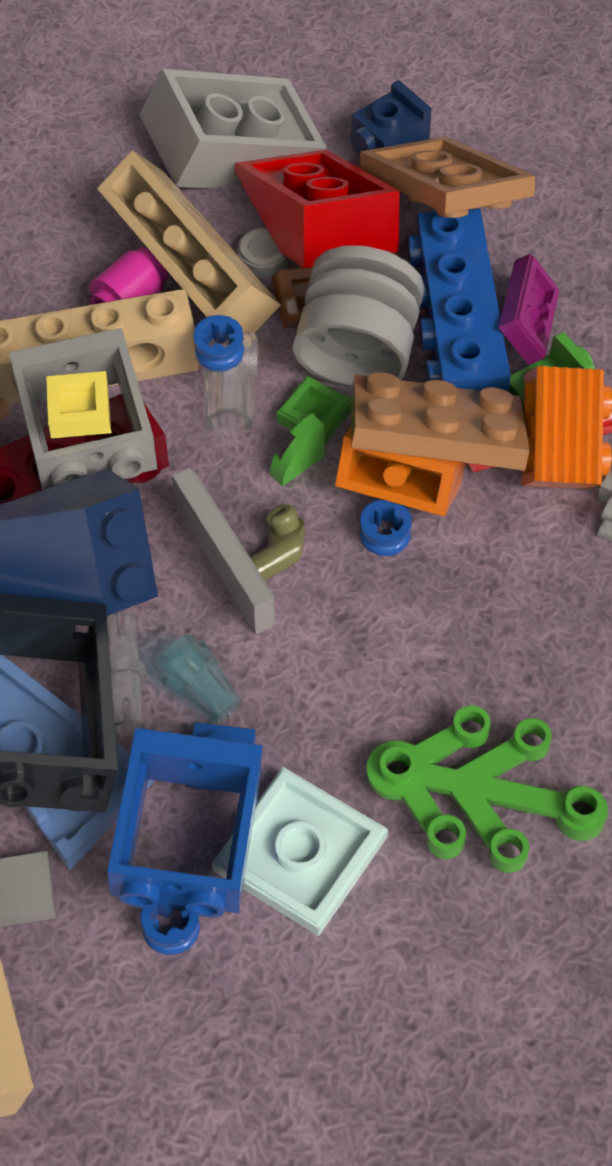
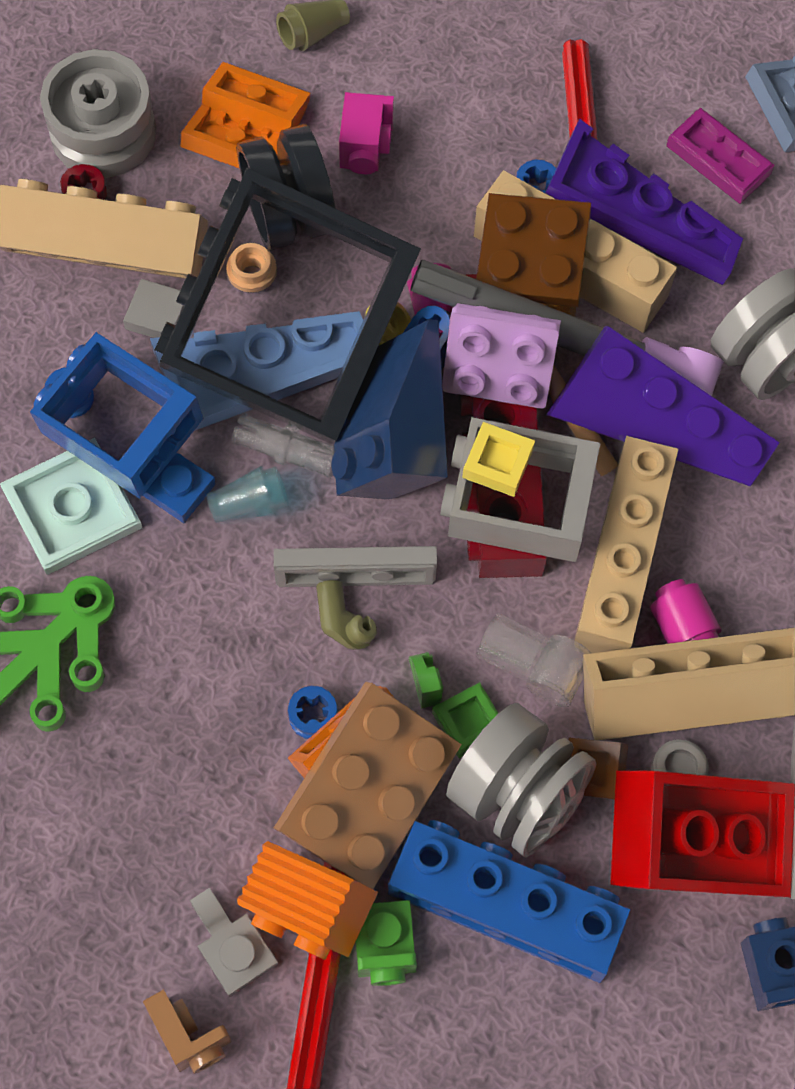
camera: 115 degrees right, 10 degrees up
(221, 329) = (564, 629): blue bush -> none
(448, 175) = (665, 965): medium nougat plate -> none
(529, 309) = (469, 961): magenta plate -> none

